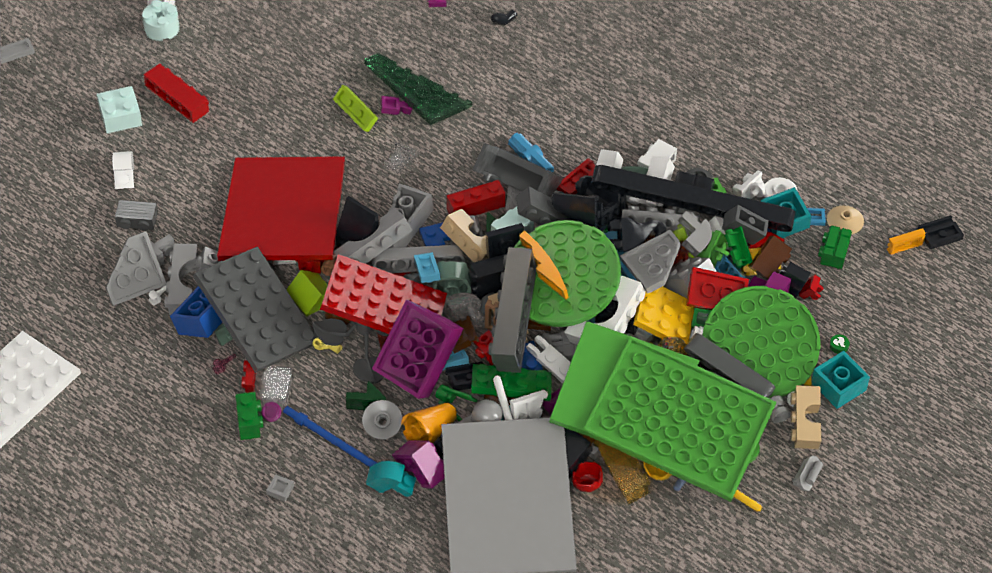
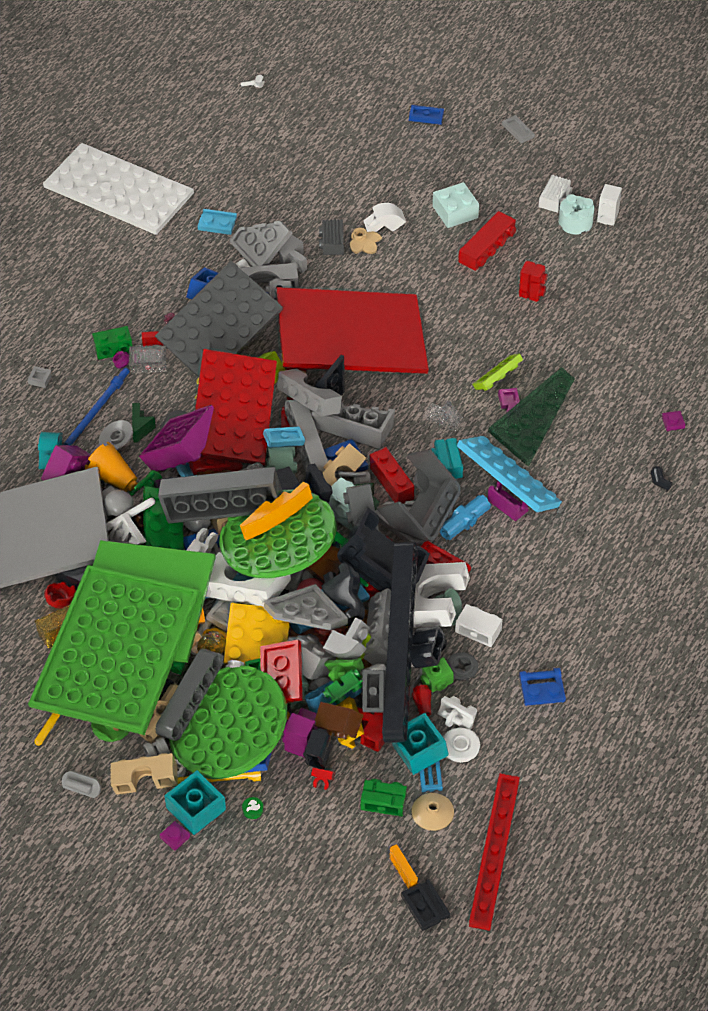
camera: 85 degrees right, 0 degrees up
(78, 314) = (217, 221): none -> medium azure plate
(124, 33) = (555, 193): none -> white brick
(145, 191) = (364, 241): none -> tan plate
(249, 62) = (532, 281): none -> red brick
(458, 158) = (449, 456): none -> teal brick
(486, 115) = (509, 473): none -> medium azure plate
(517, 124) = (506, 502): none -> magenta hinge
(729, 129) = (542, 692): none -> blue plate
(867, 404) = (174, 835): none -> magenta plate
(888, 181) = (494, 852): none -> red plate

